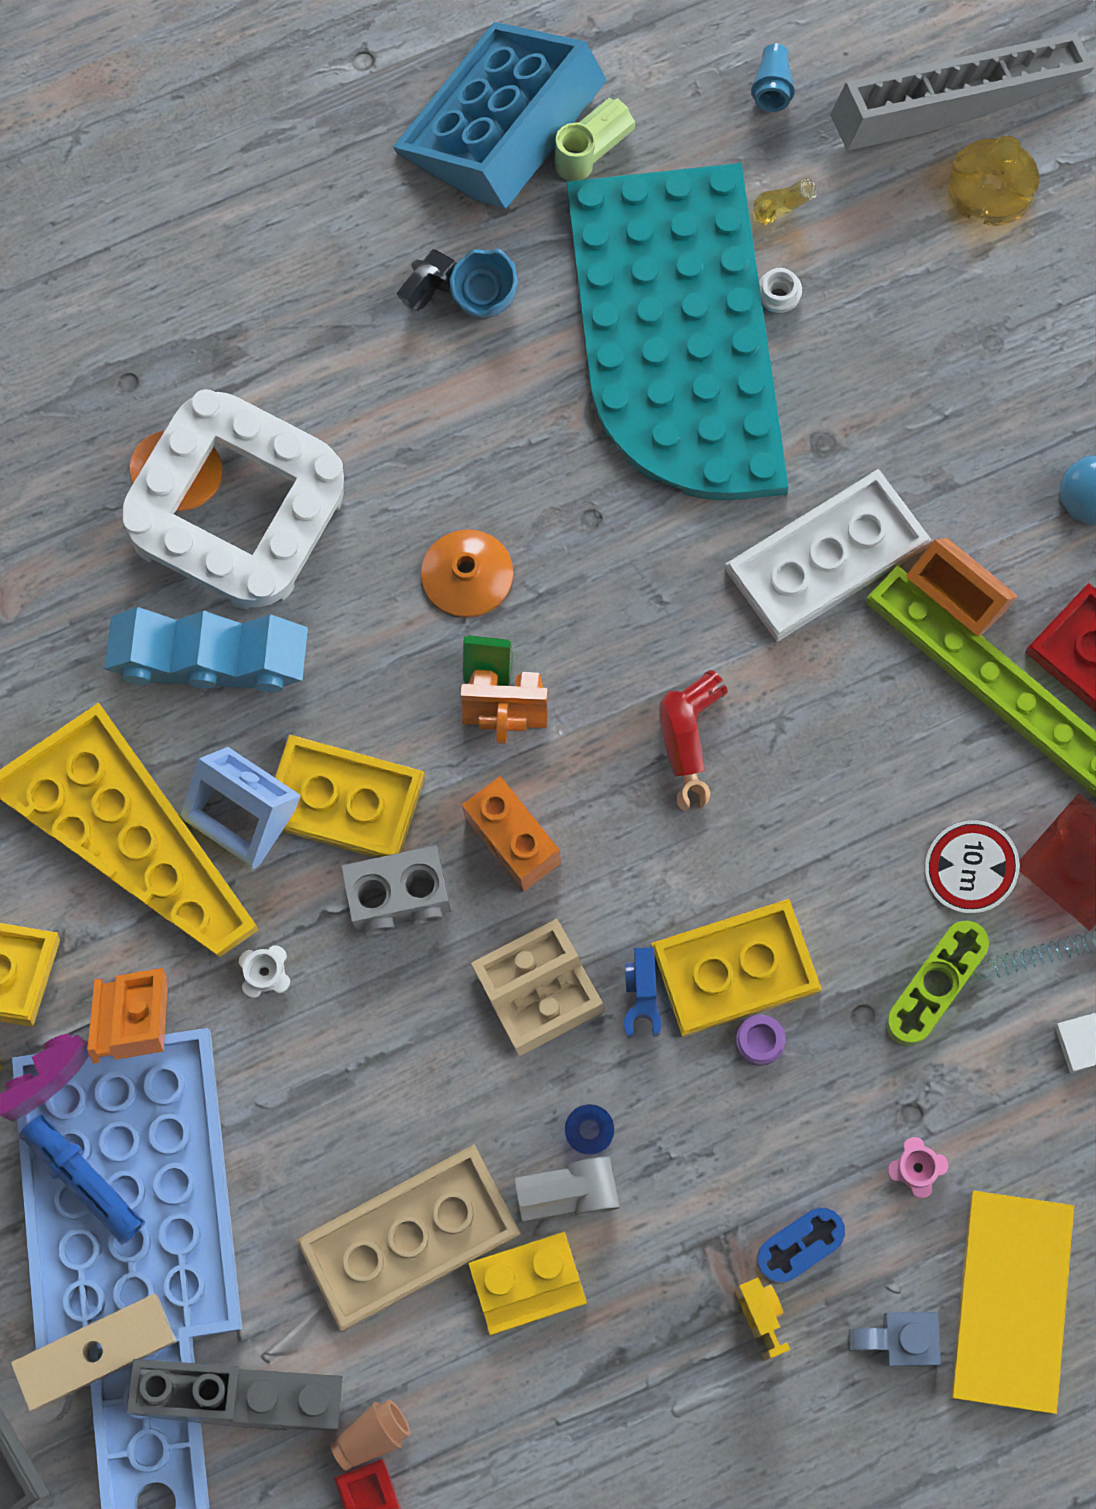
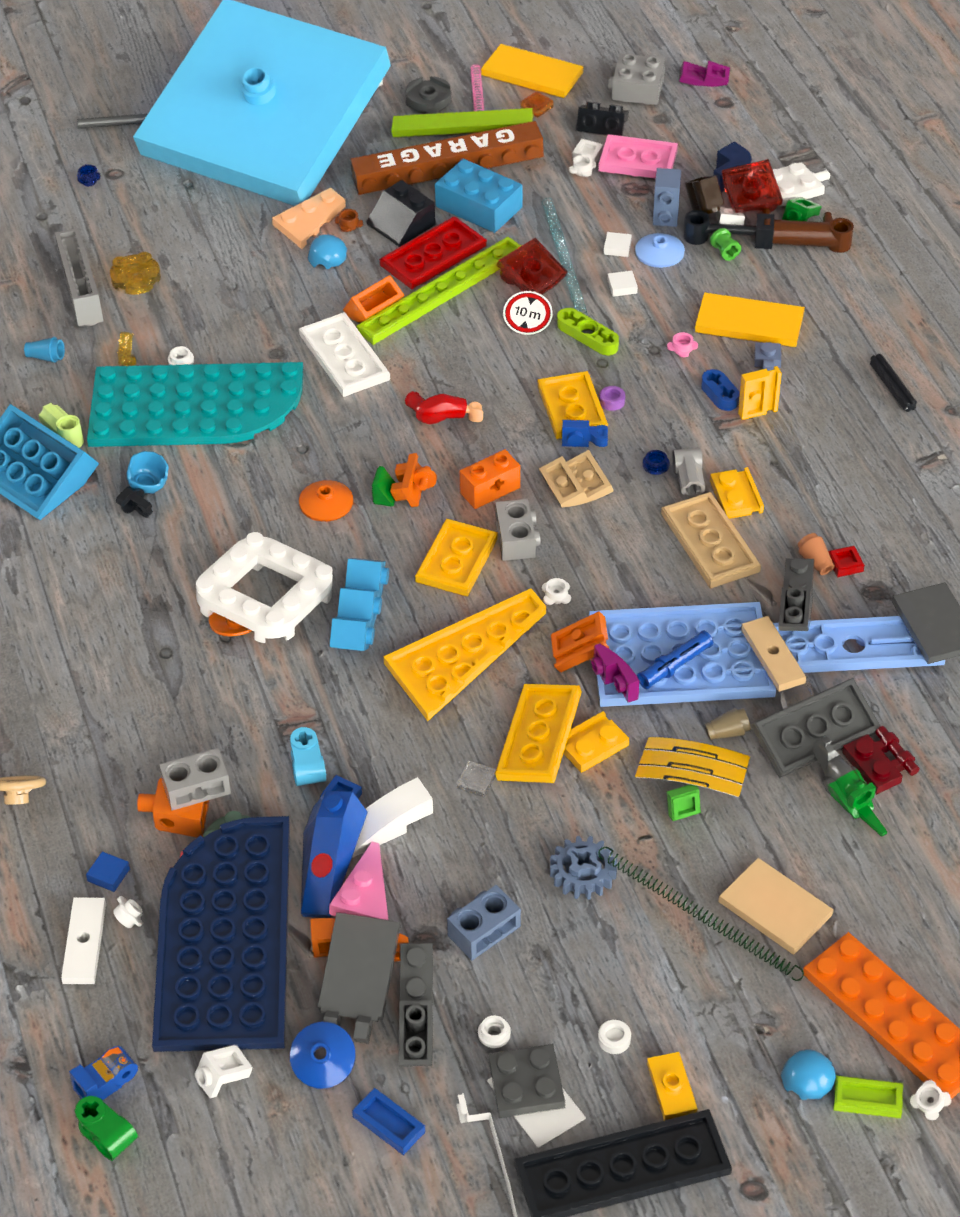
camera: 90 degrees left, 25 degrees down
(250, 789) = (464, 569): light blue tile -> none

